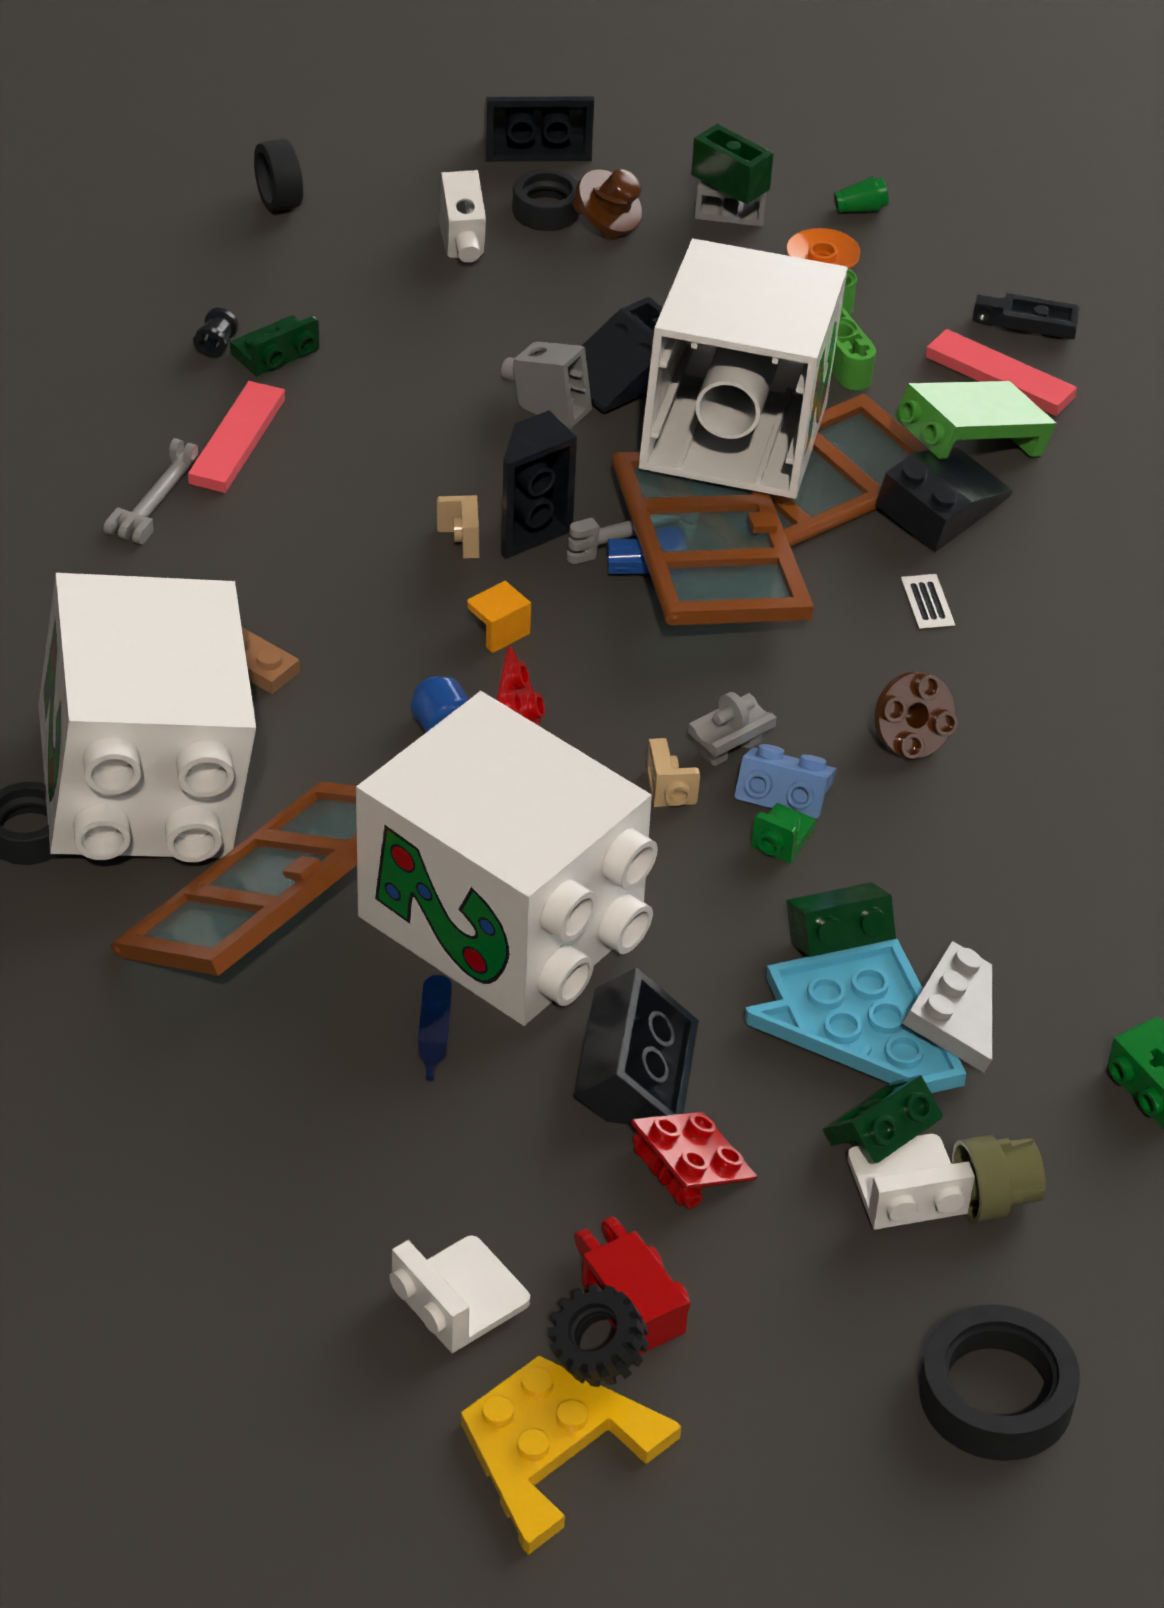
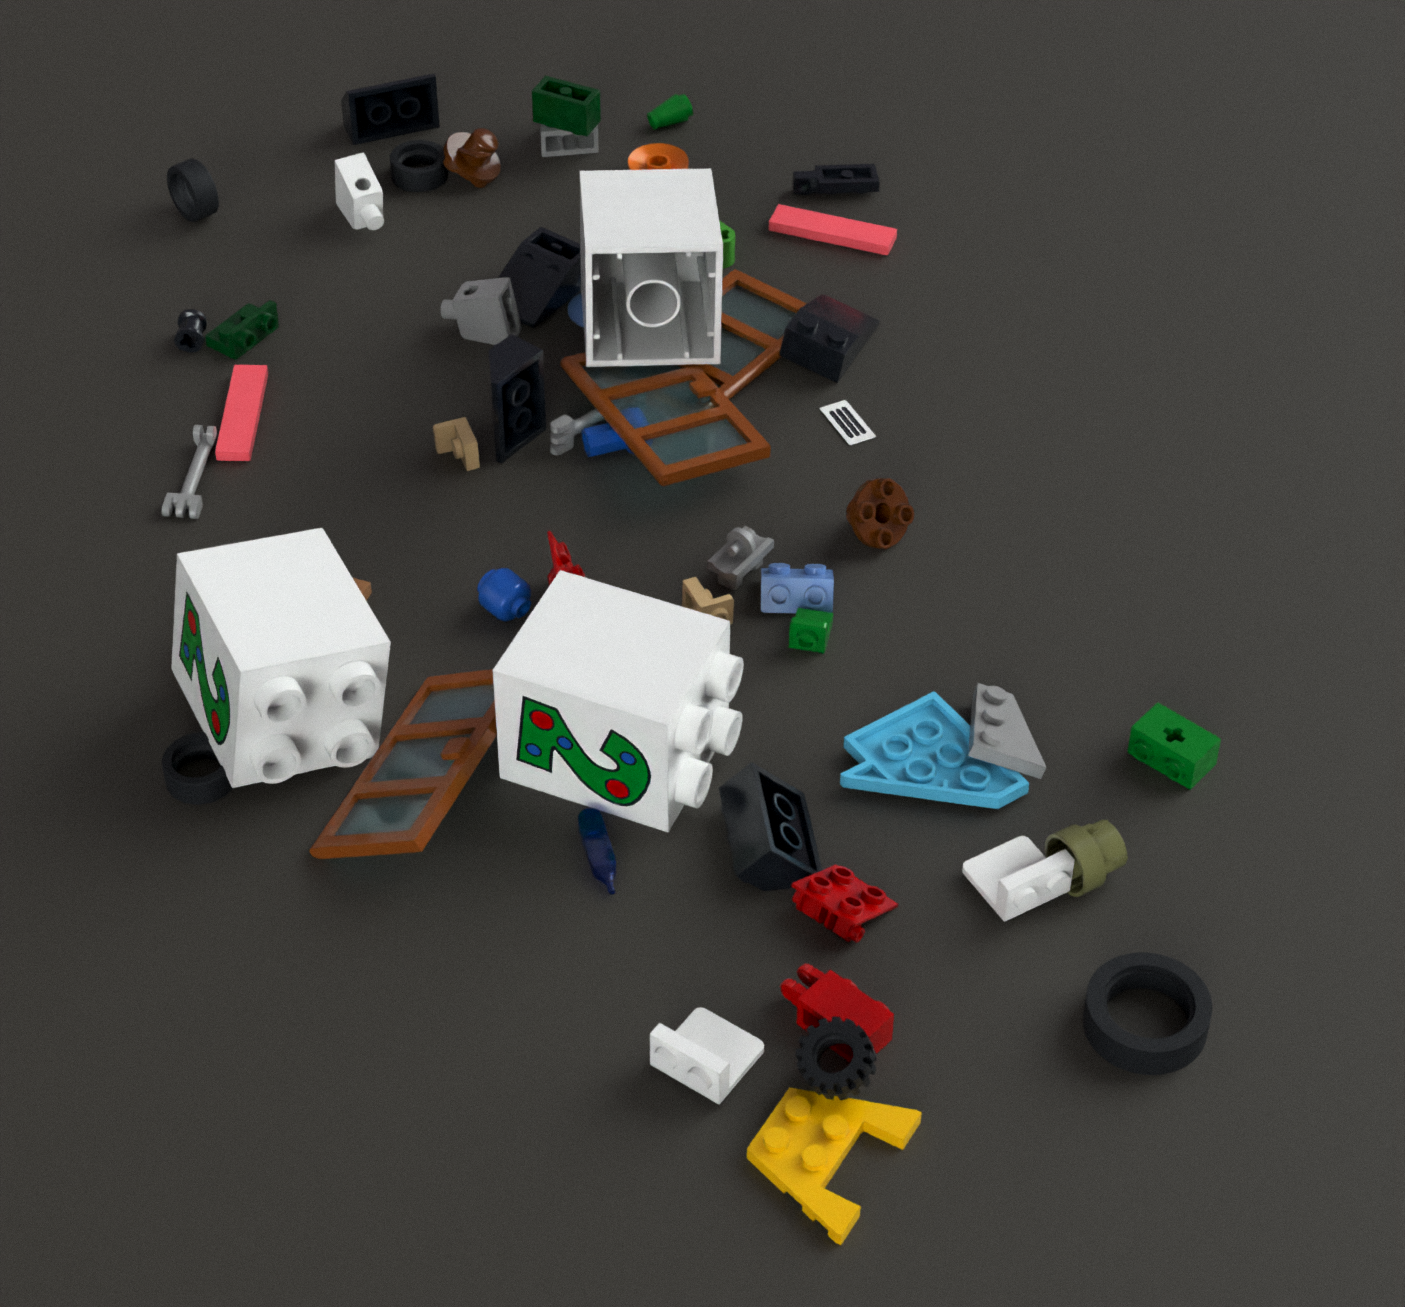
camera: 15 degrees left, 0 degrees up
(504, 613) = (523, 505): light orange panel -> none
(841, 919) = (887, 686): dark green brick -> none
(887, 1119) = (982, 833): dark green bracket -> none
(973, 410) = (830, 264): panel -> none

